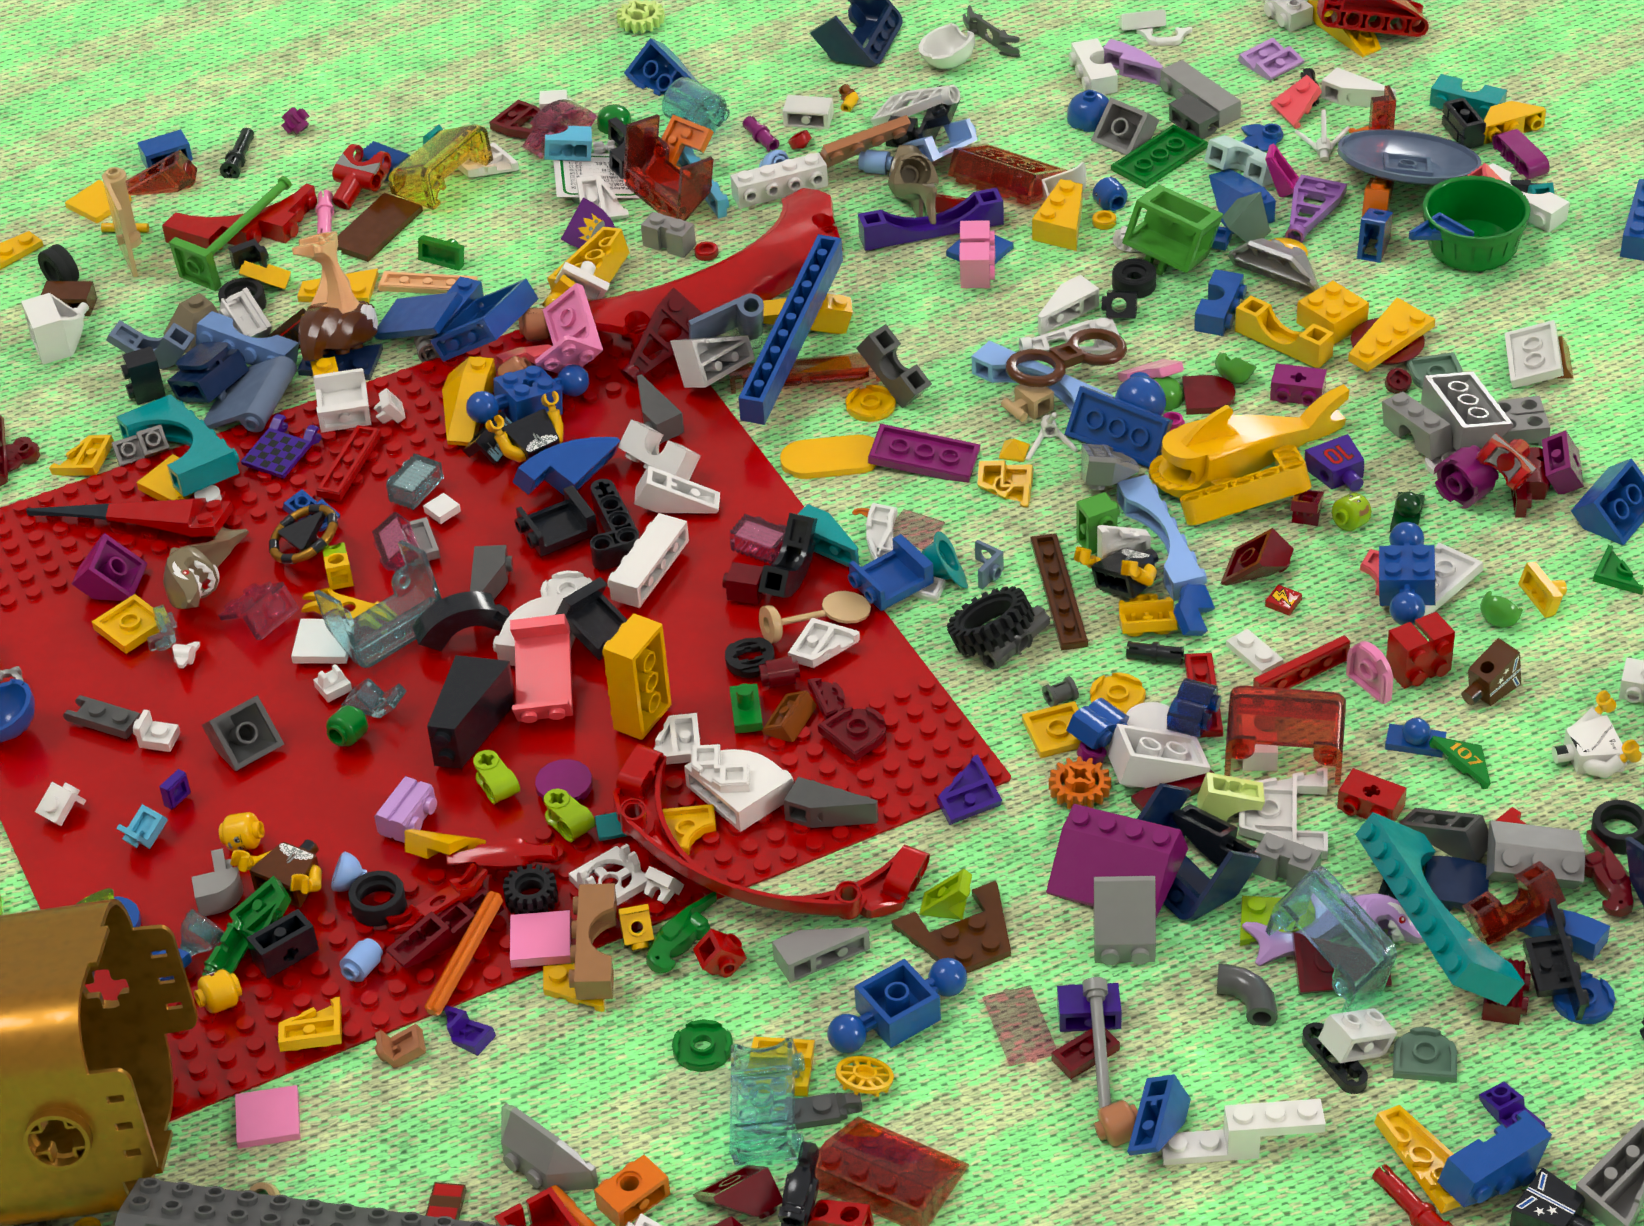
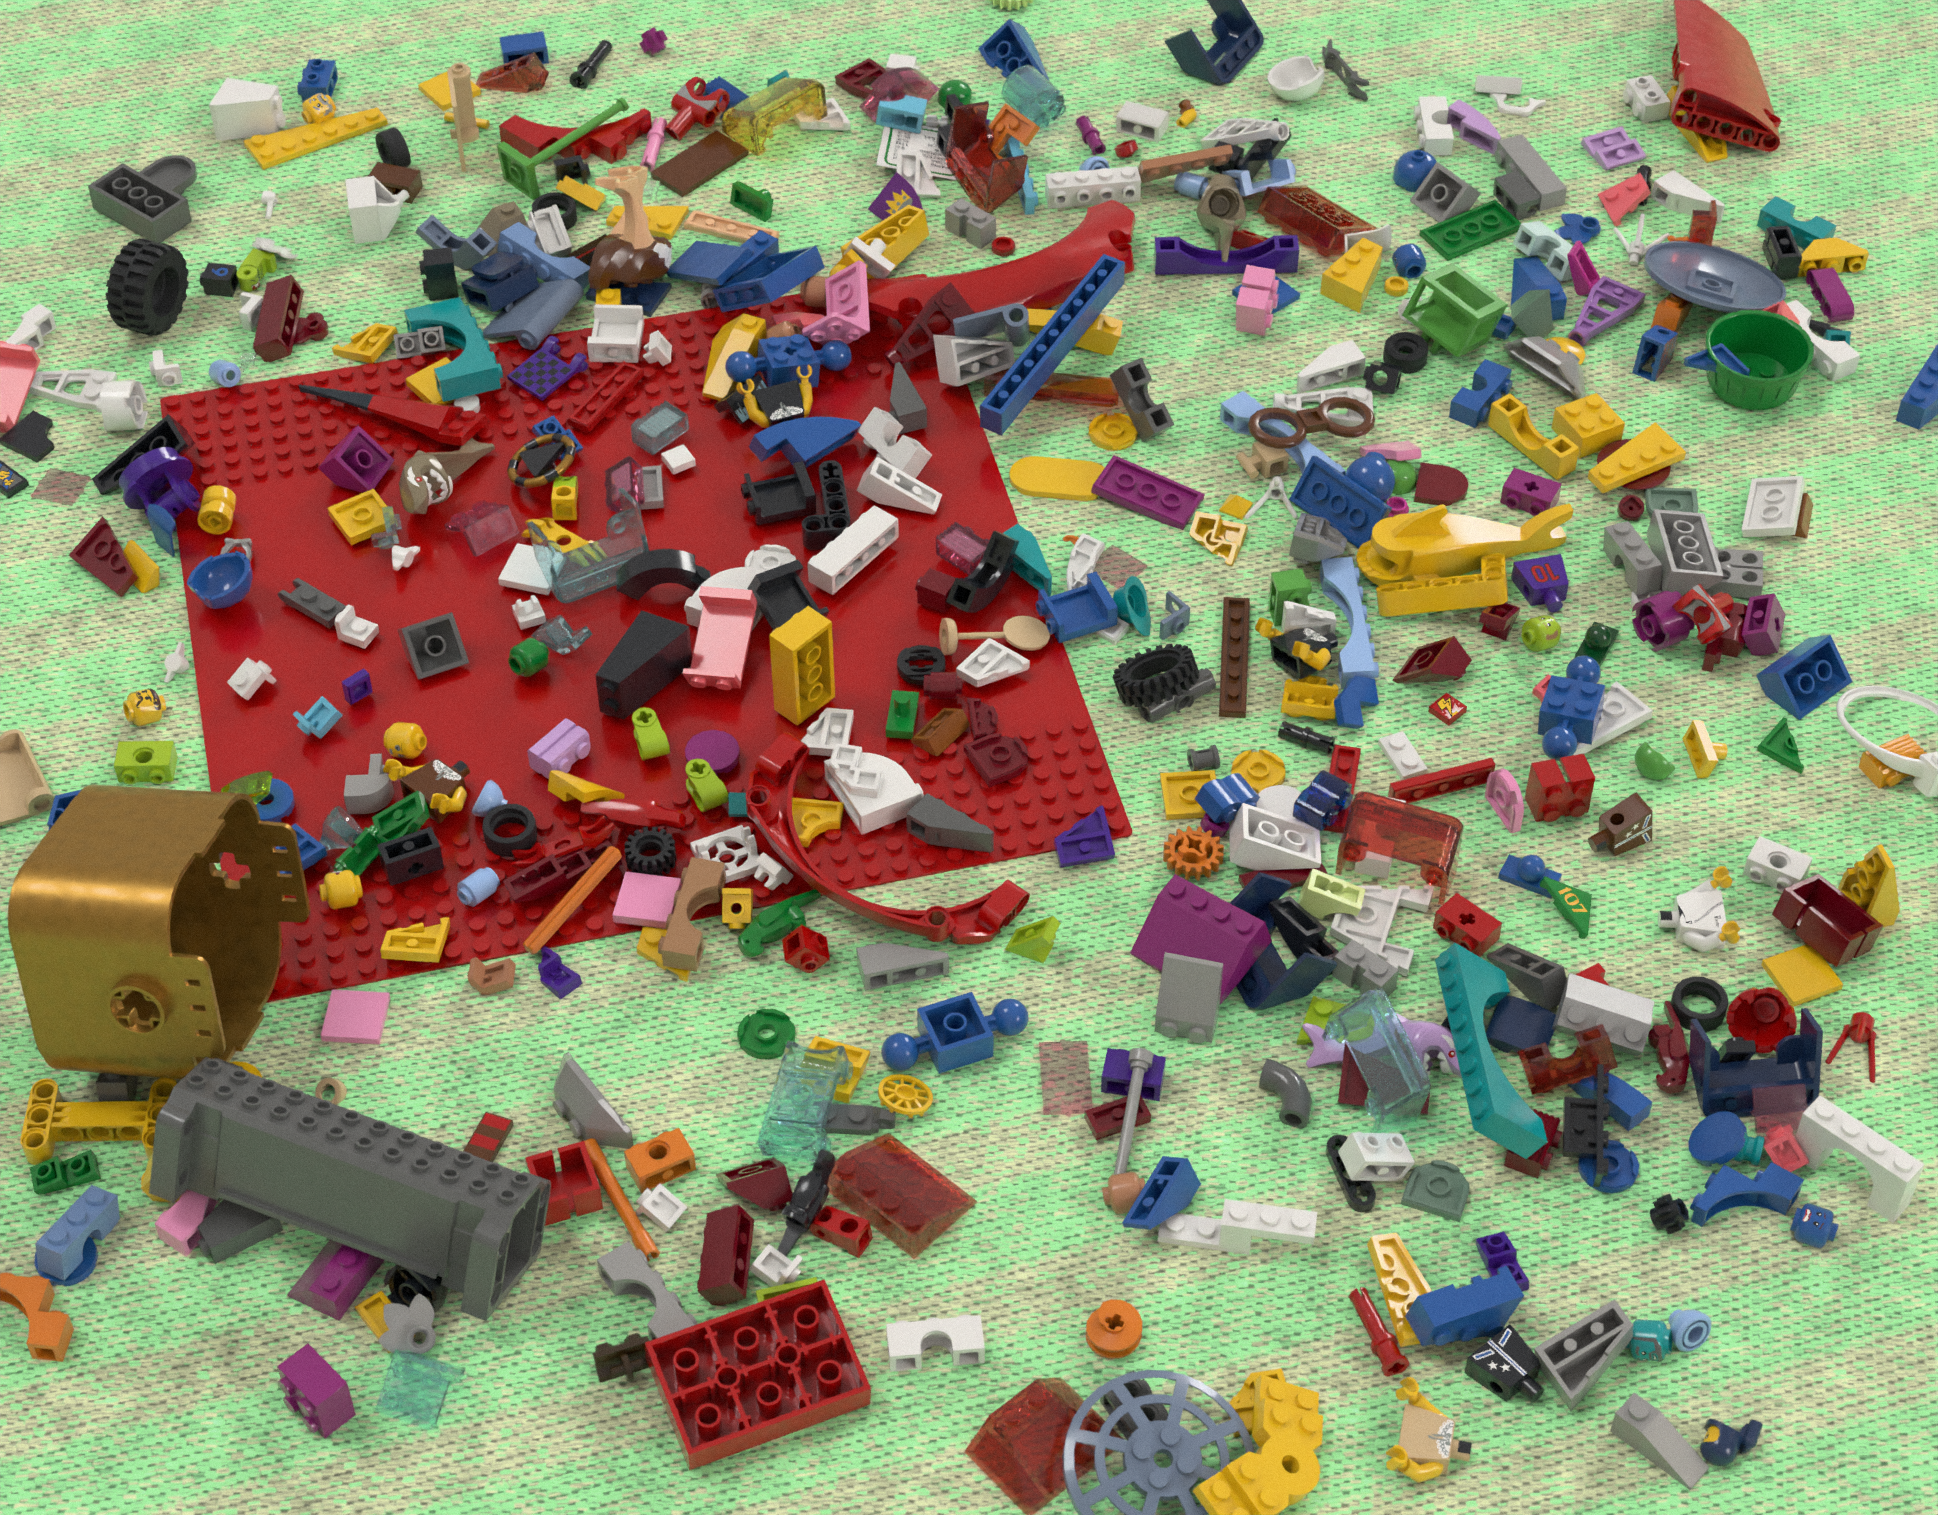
camera: 10 degrees right, 5 degrees up
(490, 569) = (703, 531): dark grey slope -> none
(972, 941) = (1043, 986): reddish brown wing -> none
(1234, 370) = (1472, 465): bright green hair -> none

